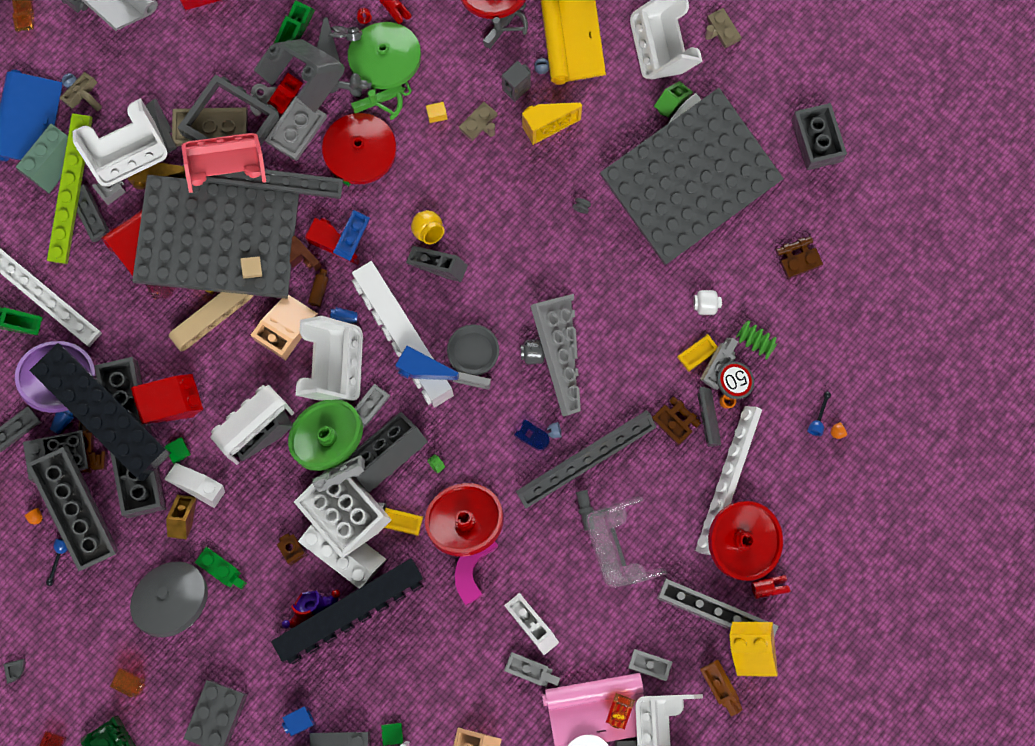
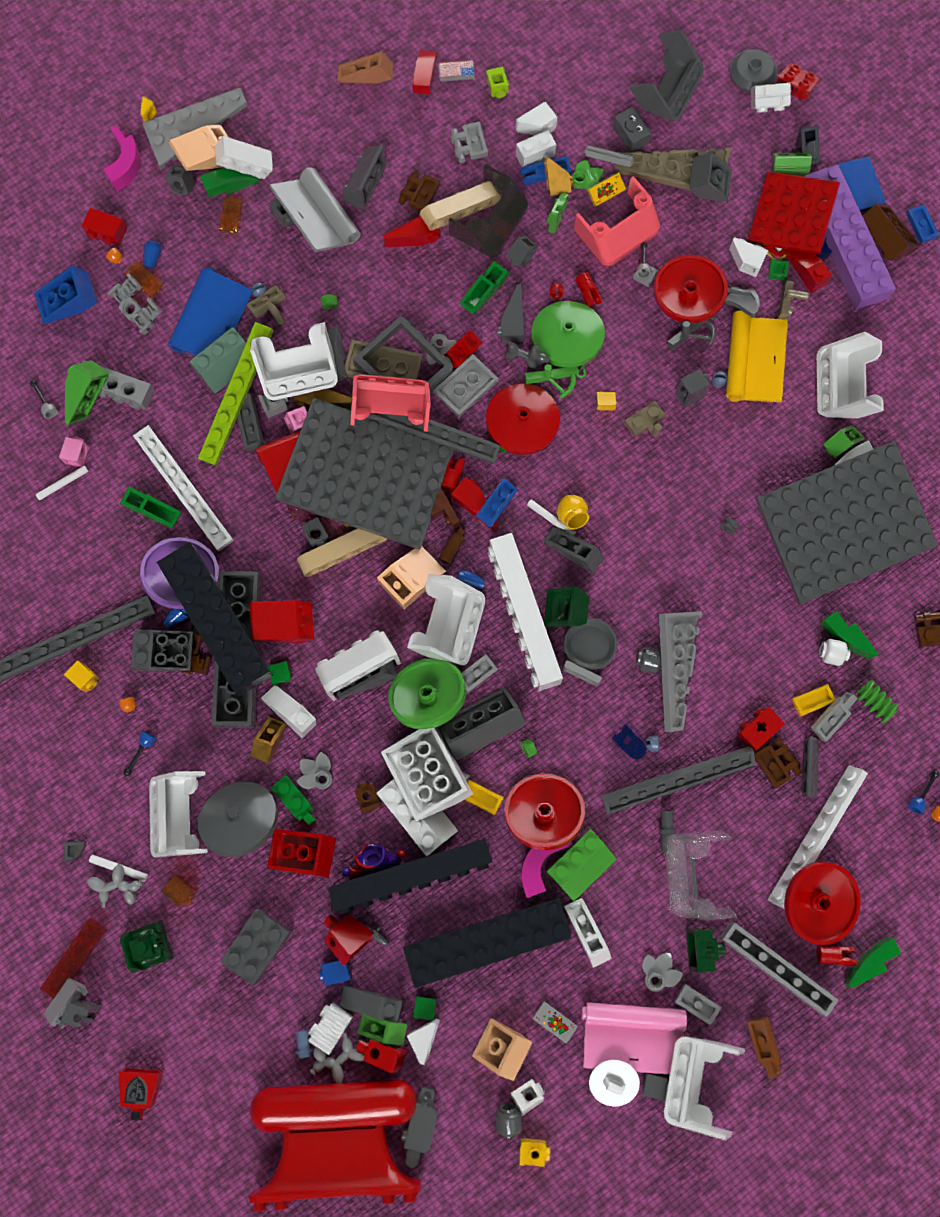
camera: 15 degrees right, 0 degrees up
(63, 676) = (111, 865): none -> white bar
(65, 689) = (117, 876): none -> light grey piece
(72, 508) = (166, 706): dark grey brick -> none
(102, 610) = (171, 814): none -> white windscreen
(135, 199) = (295, 419): none -> bright pink brick
(141, 76) = (328, 301): none -> bright green axle
(176, 301) = (312, 527): none -> dark grey brick
(232, 537) = (313, 770): none -> light grey plate
(239, 617) = (301, 853): none -> red slope
(251, 267) = (392, 511): tan tile -> none
(301, 685) = (346, 937): none -> red torso
(302, 218) = (452, 474): none -> red hinge
(320, 70) = (503, 337): dark grey windscreen -> none
(328, 676) = (377, 936): none -> dark grey helmet
(339, 473) = (433, 736): light grey hinge -> none
(350, 33) = (540, 305): dark grey plate -> none
(406, 237) = (551, 518): none -> white bar
(420, 366) = (538, 650): blue slope -> none
(436, 657) = (486, 942): none -> black brick
(441, 320) = (566, 607): none -> dark green brick
(511, 562) = (581, 865): none -> bright green slope
(519, 715) = (555, 1022): none -> light grey tile
(530, 670) = (576, 979): light grey hinge -> none
(549, 119) = (716, 432): yellow slope -> none
(610, 641) = (662, 969): none -> light grey plate
(620, 711) = (658, 1045): clear orange brick -> none
(643, 611) = (703, 950): none -> dark green brick
(660, 383) = (770, 722): none -> red brick
(719, 282) = (851, 635): none -> green slope
(723, 28) = (908, 382): dark tan plate -> none
(727, 405) = (836, 752): orange hinge -> none
(735, 380) = (846, 737): piece -> none
(753, 648) = (808, 1016): yellow slope -> none
(805, 584) = (872, 962): none -> green slope

